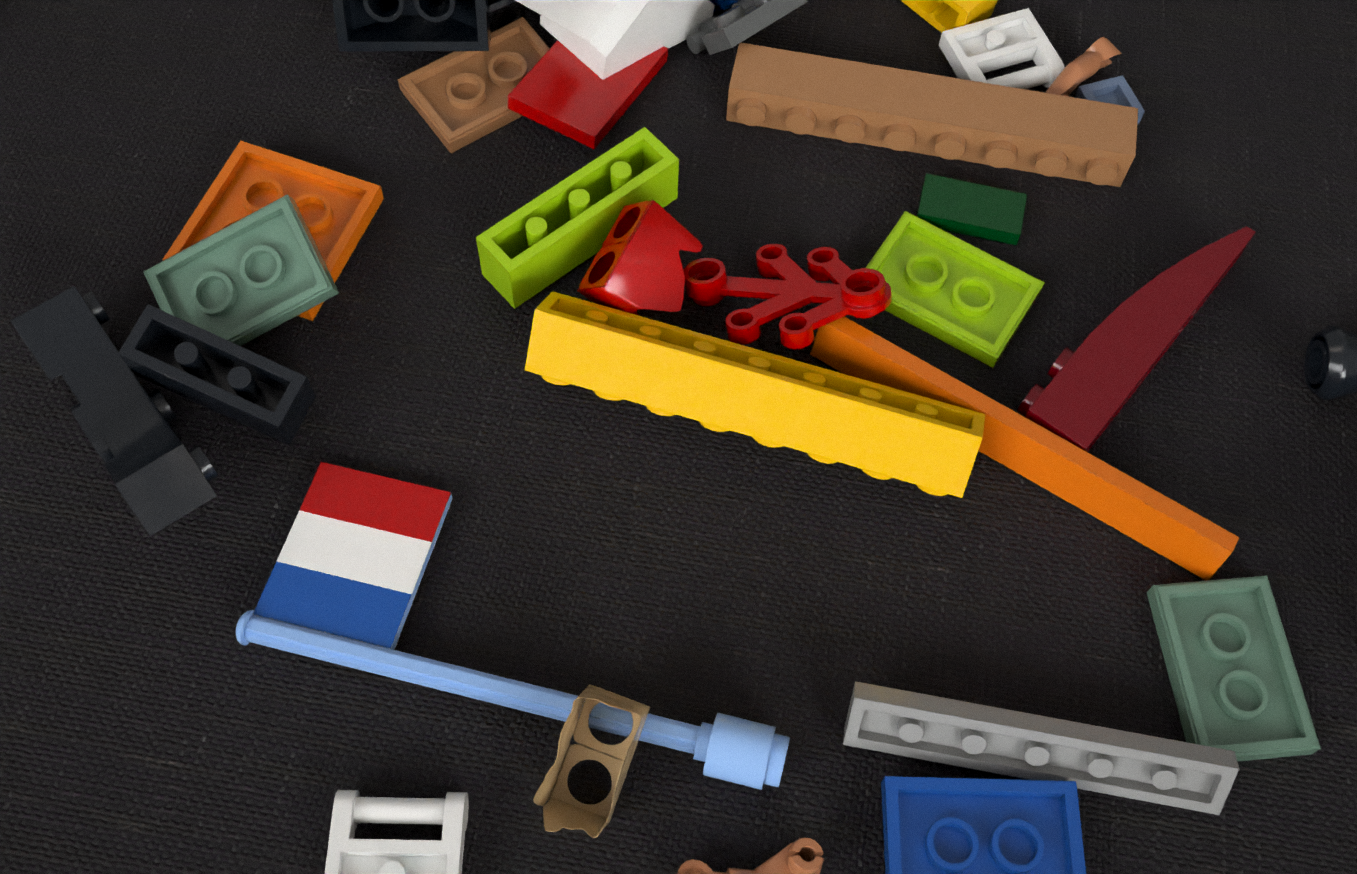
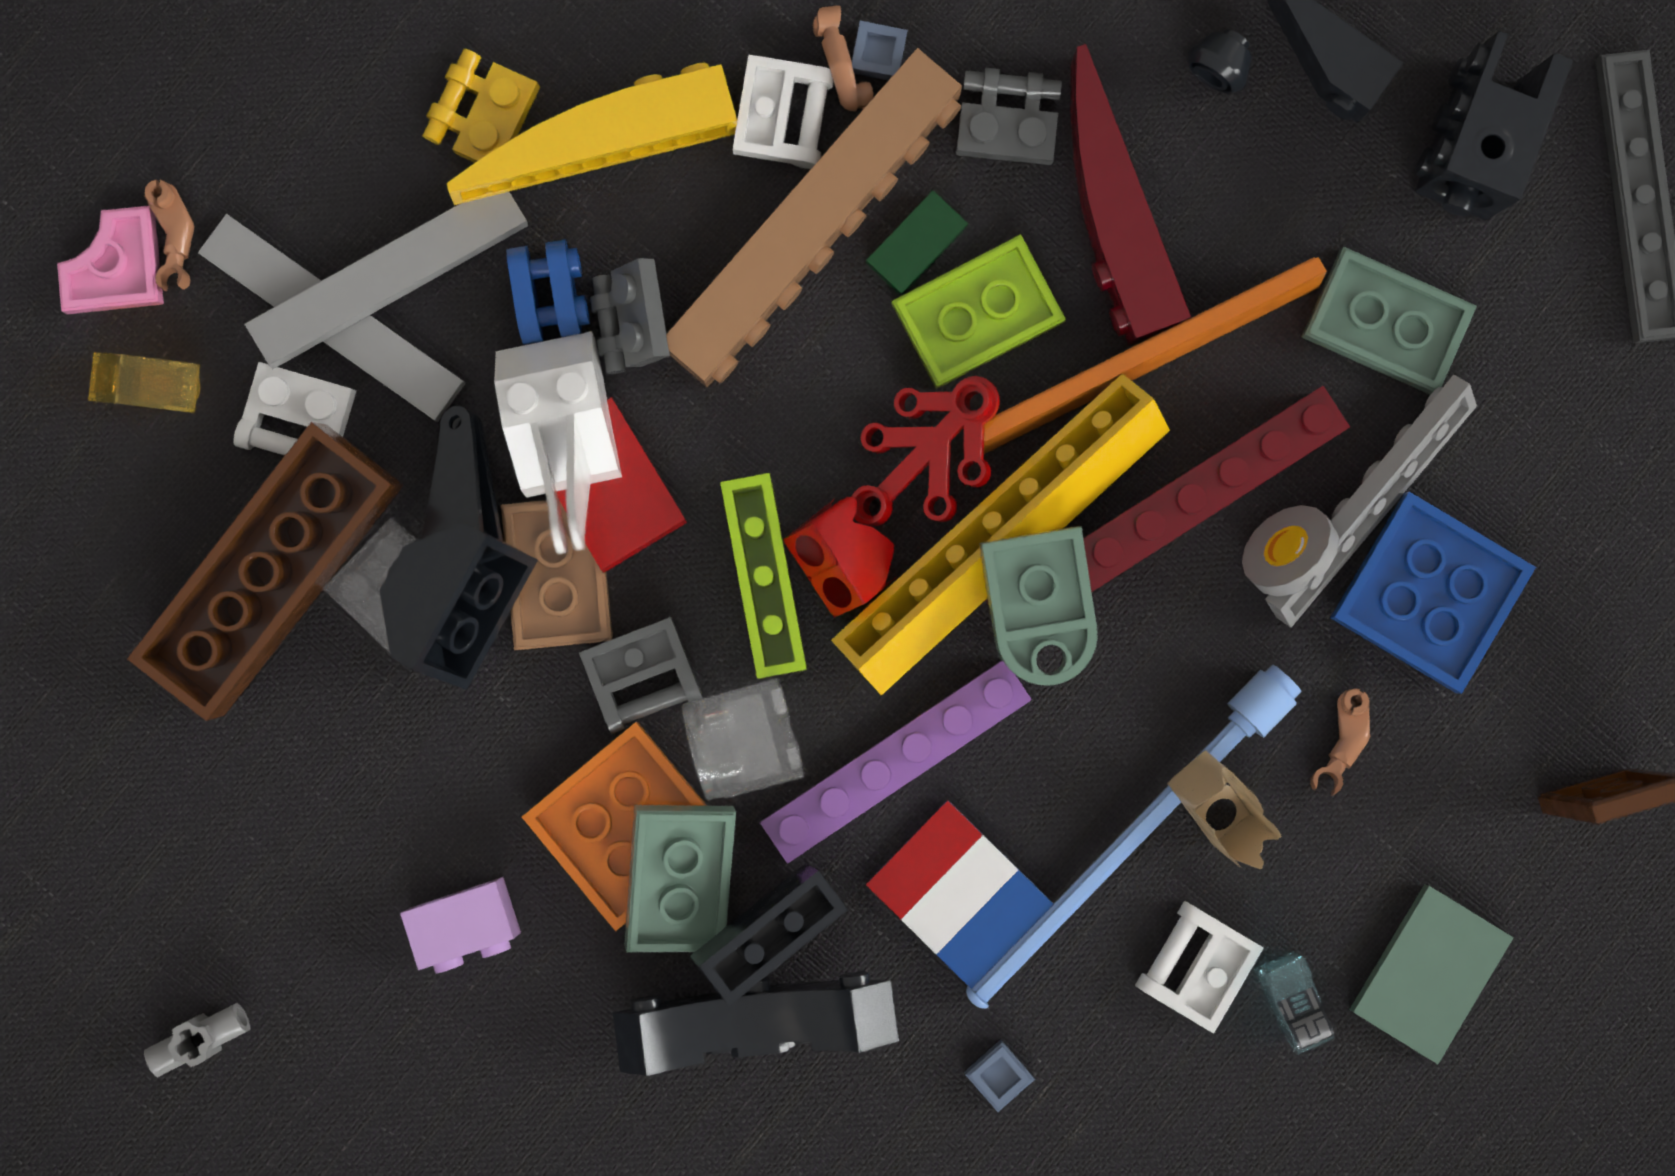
camera: 60 degrees left, 25 degrees up
(112, 142) = (460, 925): none -> lavender brick
(165, 699) = (999, 1075): none -> sand blue tile
(412, 264) = (743, 740): none -> clear piece
(438, 163) = (635, 659): none -> dark grey plate
(470, 429) = (895, 761): none -> medium lavender plate
(708, 435) = (1040, 599): none -> sand green tile
(884, 542) = (1211, 486): none -> dark red brick
(931, 677) = (1290, 550): none -> light grey tile
(1126, 234) = (1005, 131): none -> dark grey plate

